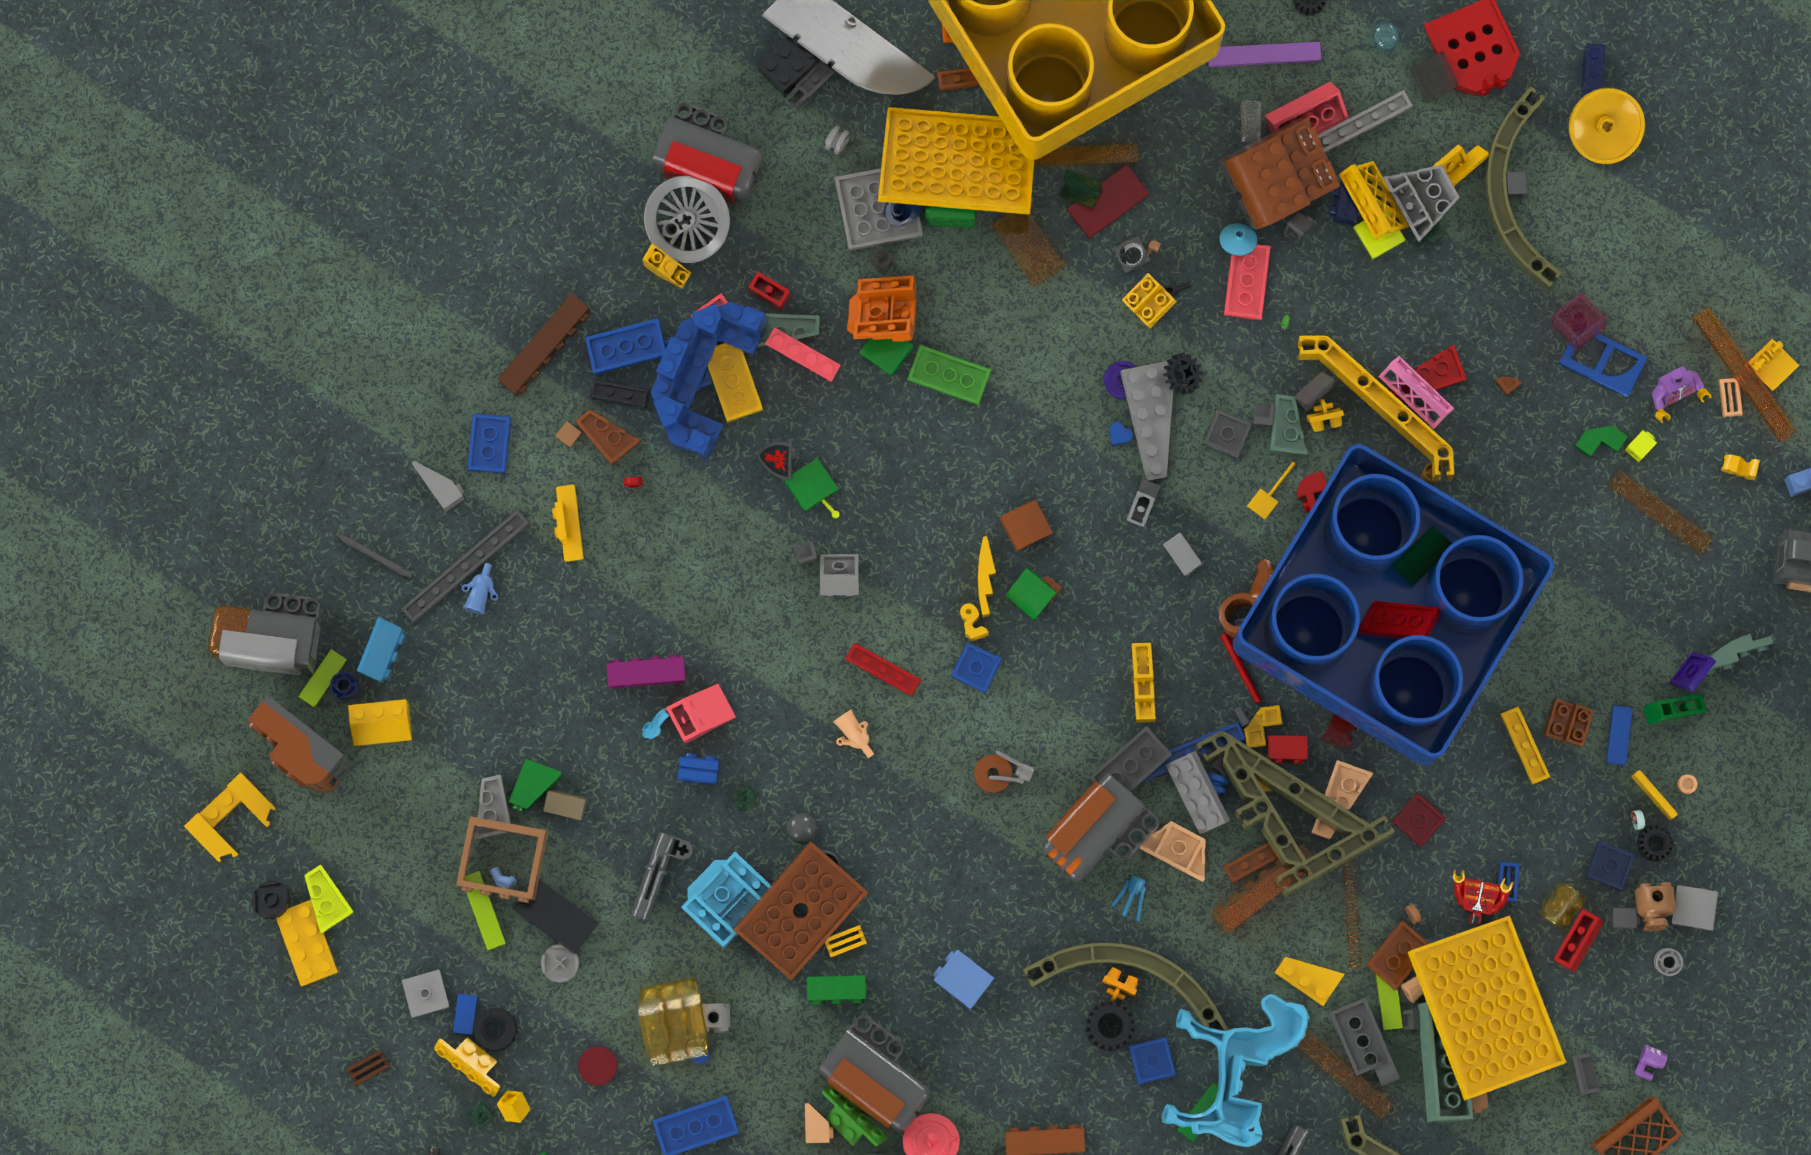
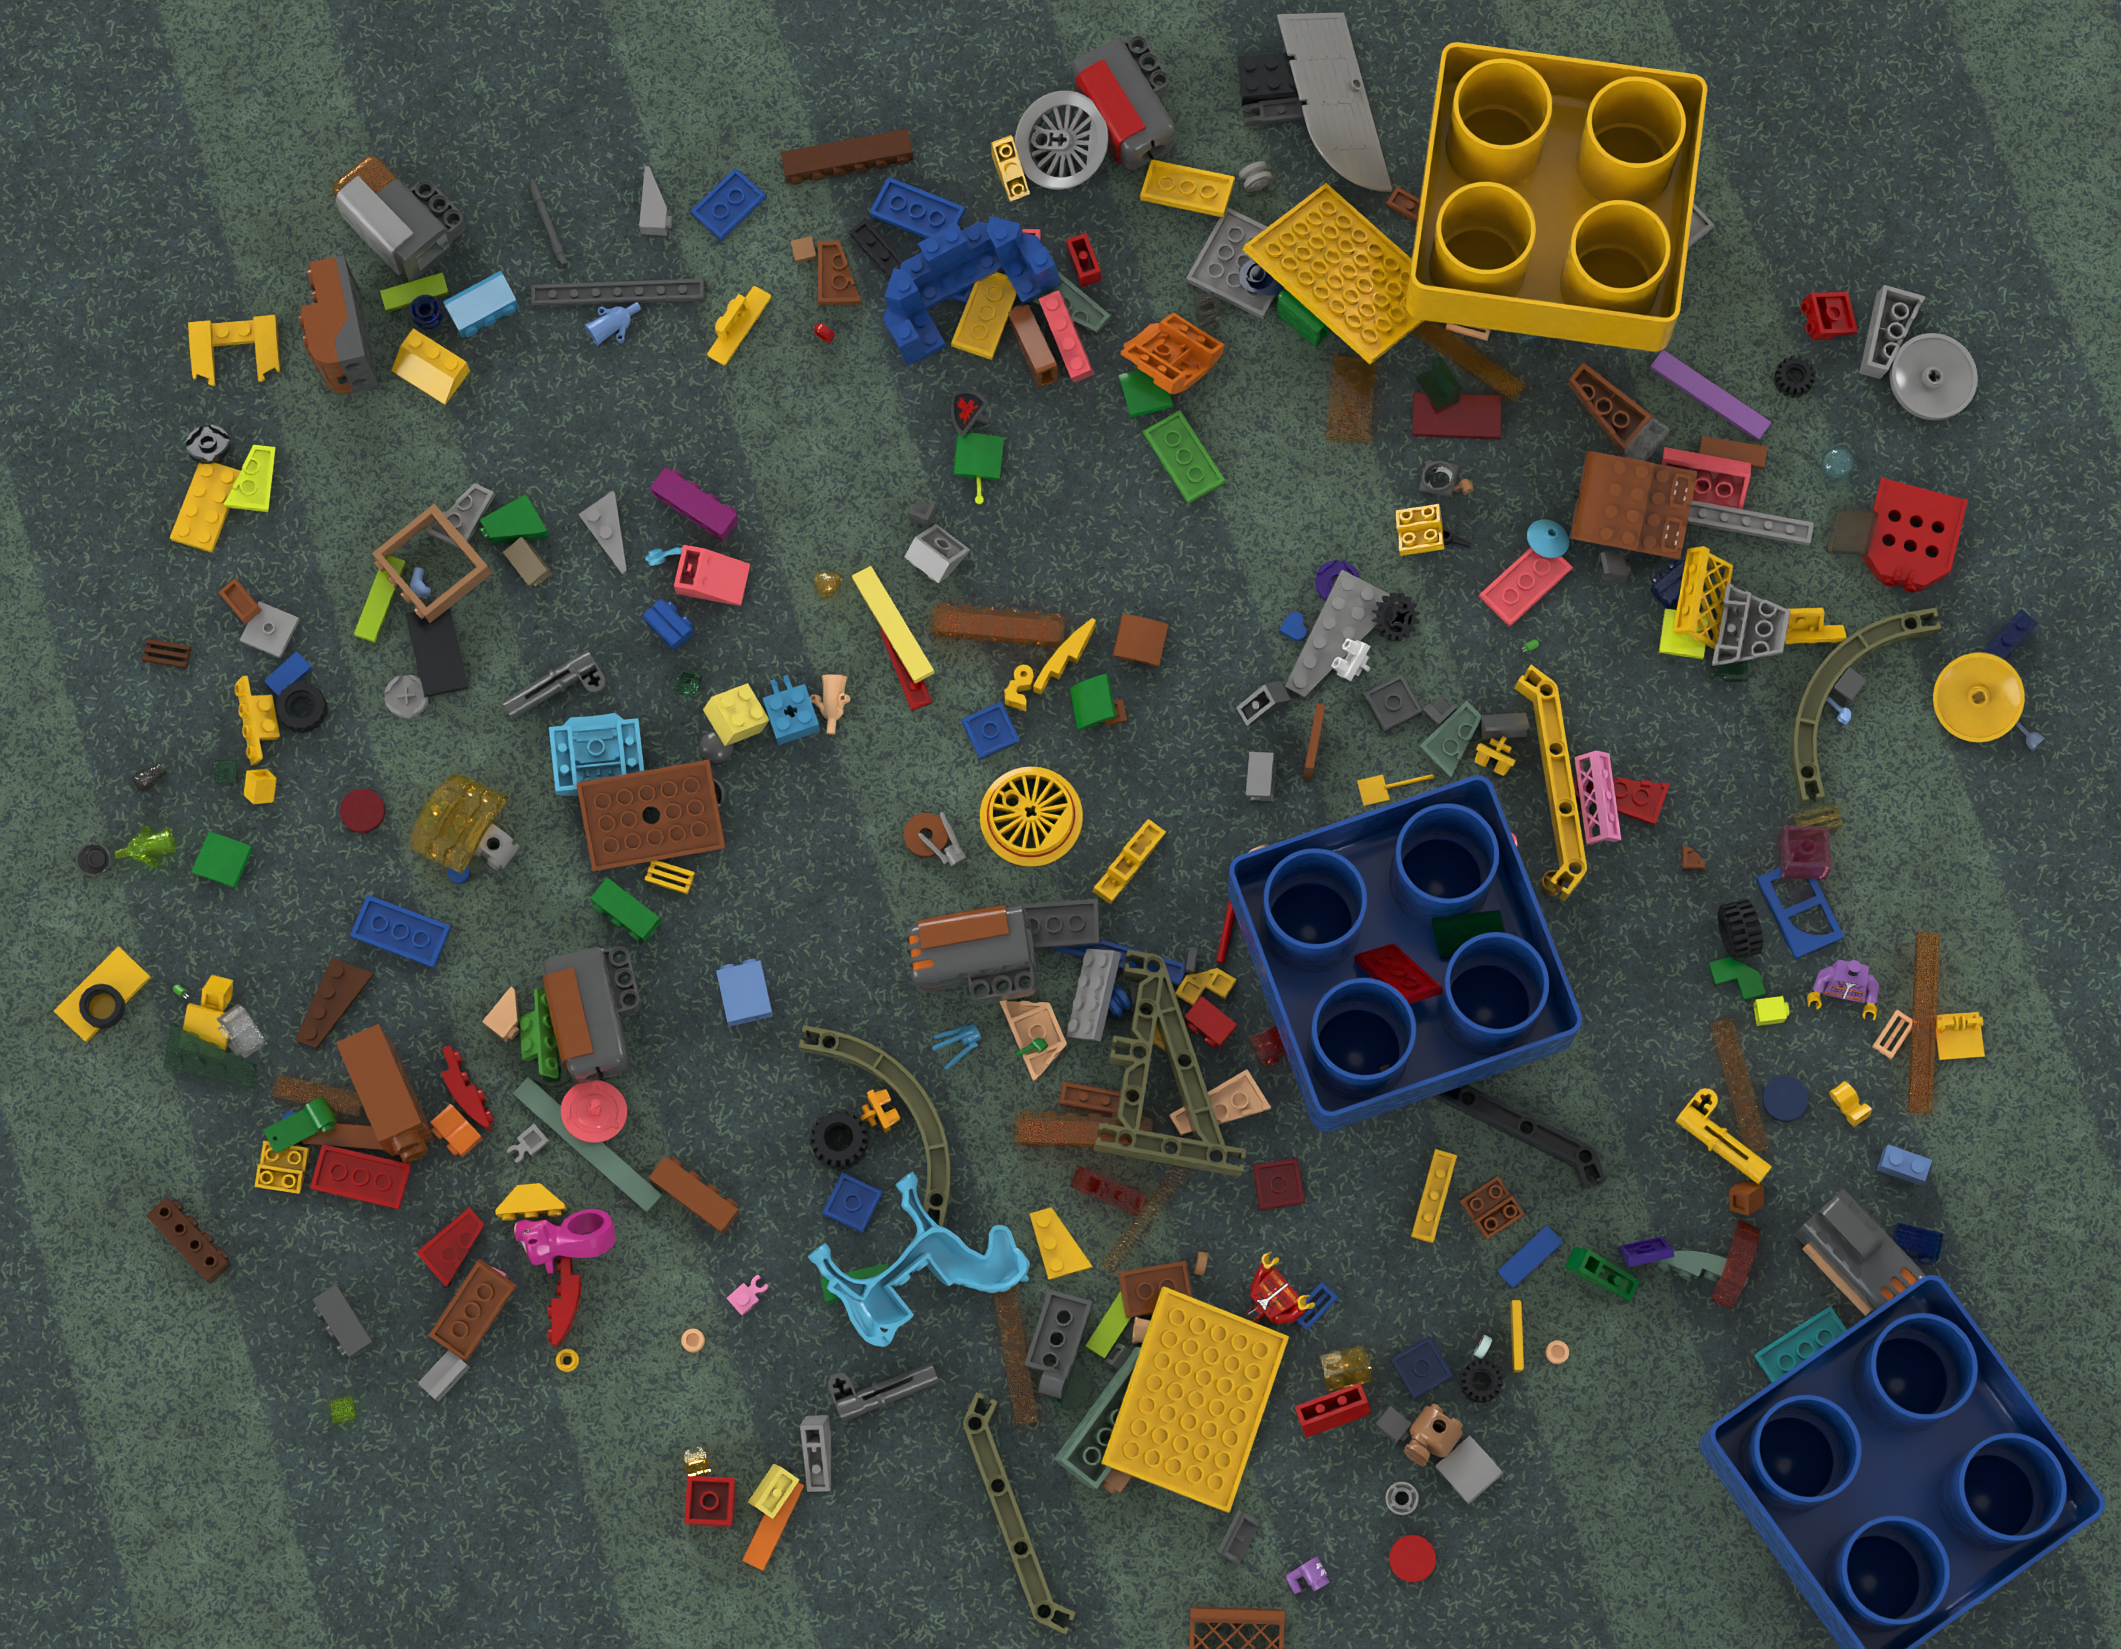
camera: 40 degrees right, 5 degrees down
(388, 990) = (240, 601): none -> dark orange tile
(595, 736) = (604, 524): none -> light grey wing
(782, 655) = (826, 583): none -> clear yellow cone
(784, 378) = (1033, 345): none -> dark orange slope
(797, 185) = (1187, 188): none -> yellow plate
(799, 795) = (736, 714): none -> light yellow brick
(821, 765) = (790, 700): none -> dark azure hinge
(851, 648) = (893, 624): none -> light yellow tile
(924, 591) = (998, 626): none -> clear orange brick
(1084, 699) = (1062, 834): none -> yellow piece
(1179, 425) = (1354, 661): none -> white hips
(1188, 855) = (1038, 1043): none -> green hand
(1200, 503) = (1314, 740): none -> dark orange tile
(1208, 116) = (1609, 406): none -> dark orange wedge
(1311, 81) = (1734, 450): none -> dark orange tile
(1312, 916) = (1107, 1190): none -> clear red slope
(1527, 206) = (1844, 713): none -> light blue hand
(1562, 650) = (1509, 1120): none -> black piece
(1576, 279) = (1836, 815): none -> clear yellow tile
(1580, 407) = (1740, 929): none -> black tyre
(1656, 559) = (1718, 1138): none -> yellow piece
(1662, 125) = (2033, 739): none -> sand blue hinge
(1696, 497) = (1785, 1099): none -> dark blue tile
(1705, 995) = (1412, 1558): none -> red tile
(1725, 583) = (1746, 1197): none -> dark orange panel
(1757, 631) = (1737, 1264): none -> clear red slope

